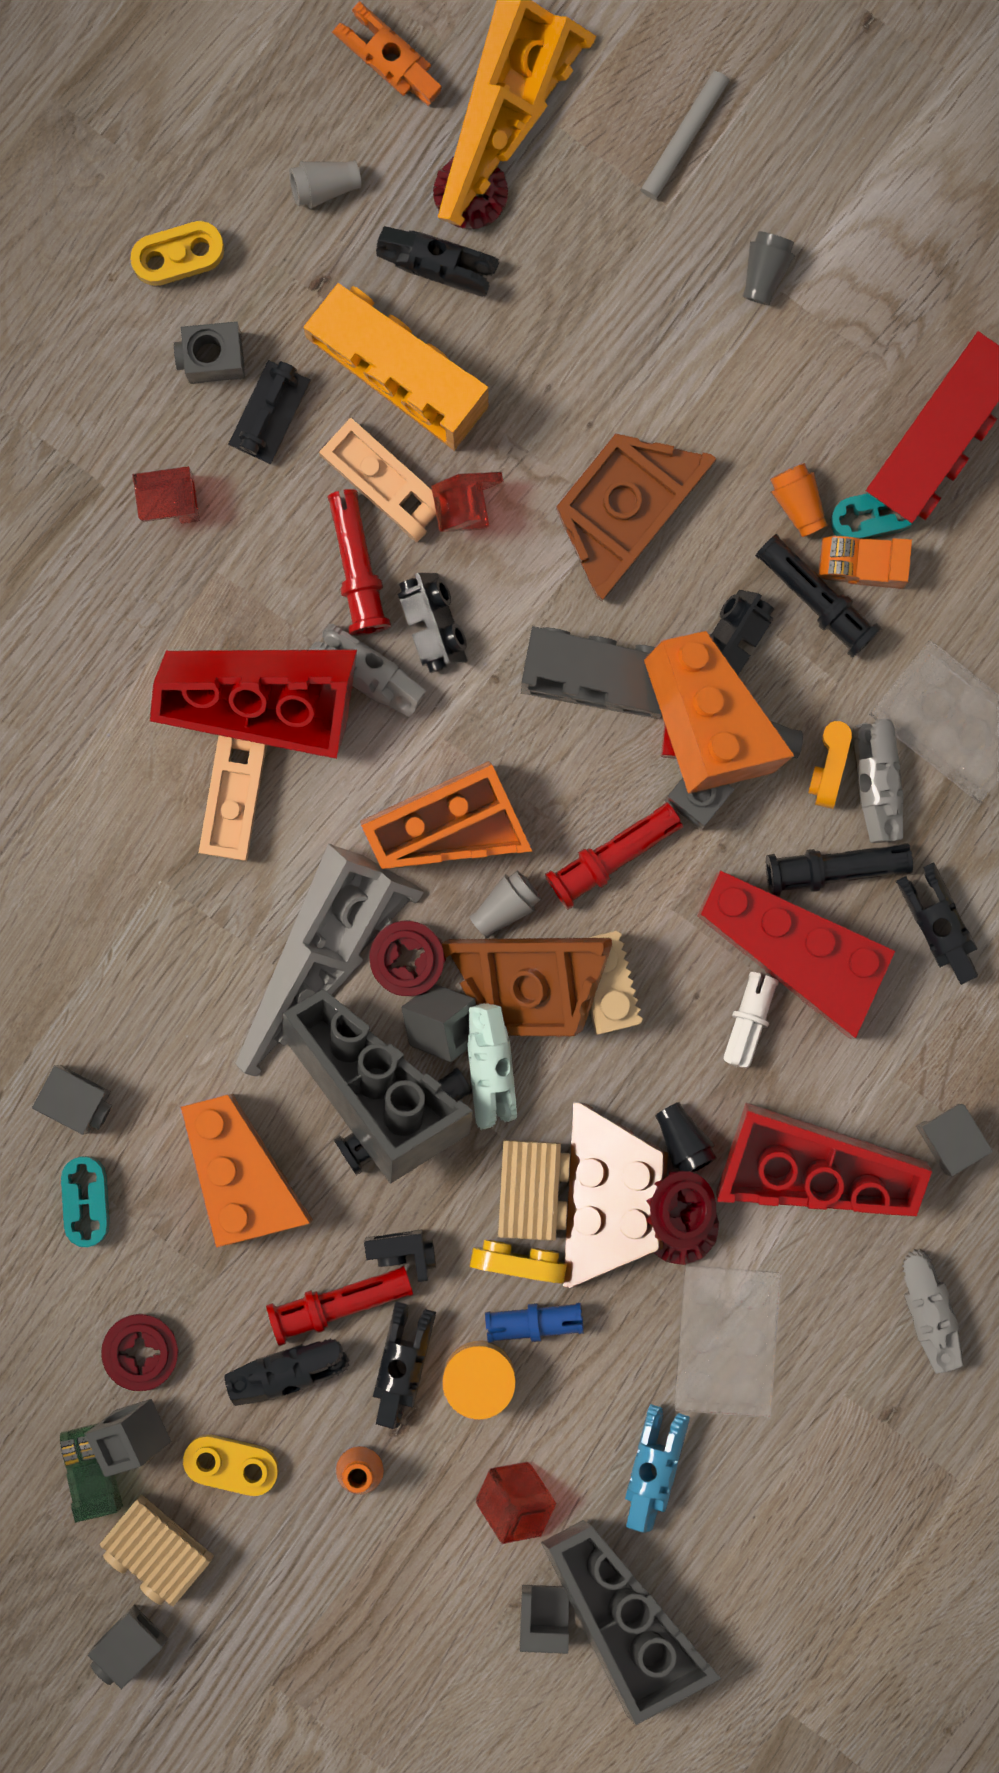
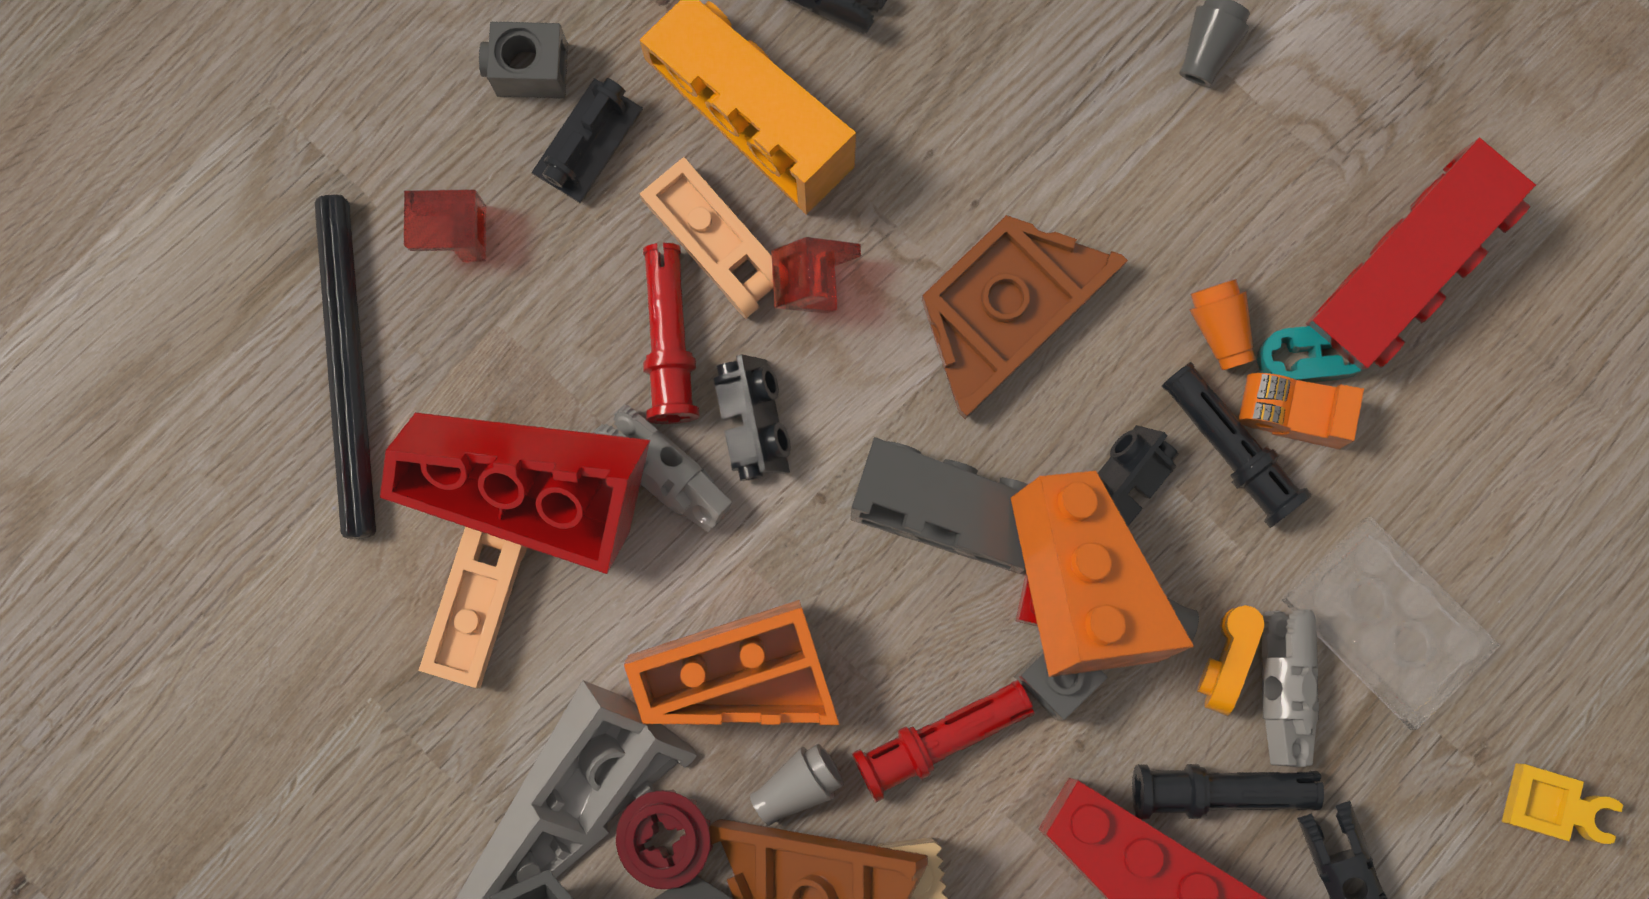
camera: 10 degrees right, 5 degrees down
(101, 620) = (345, 367): none -> black axle

